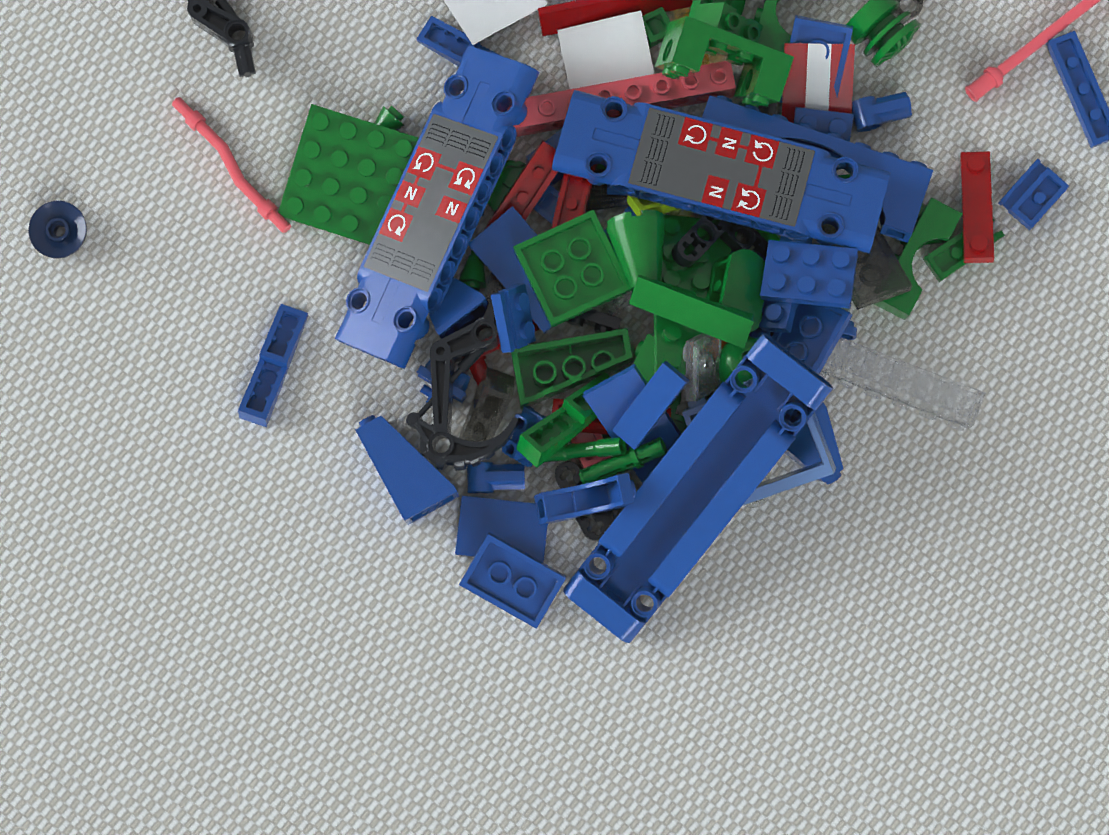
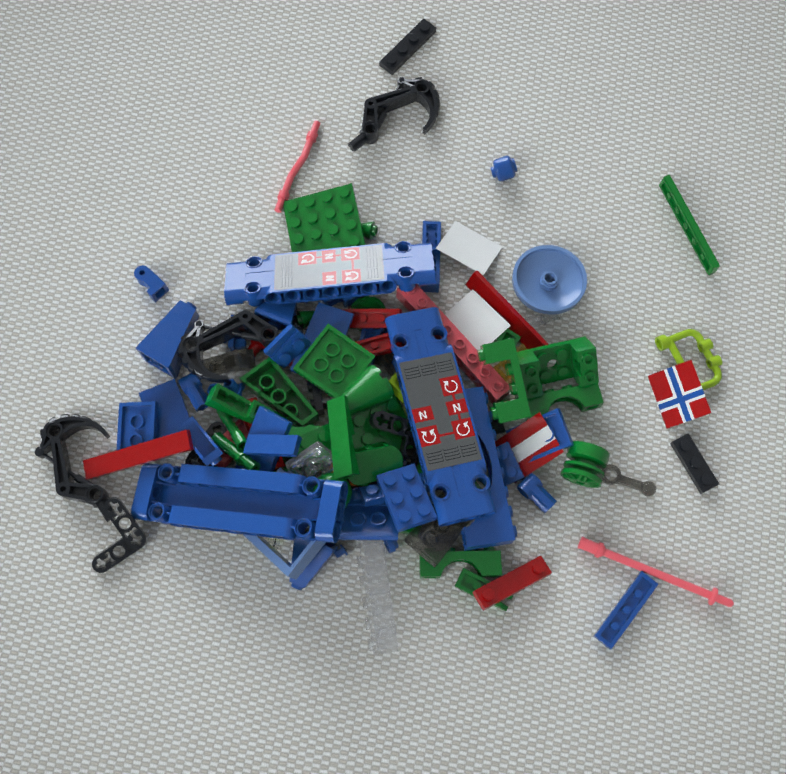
camera: 60 degrees right, 10 degrees down
(45, 224) = (210, 96): dark blue dish -> none
(273, 365) = (195, 244): blue slope -> none
(296, 457) = (149, 279): none -> blue leg
(541, 712) = (83, 490): none -> black piece
(551, 592) = (138, 454): none -> red tile
(654, 667) = (125, 541): none -> black beam
(1033, 194) = (542, 615): blue plate -> none

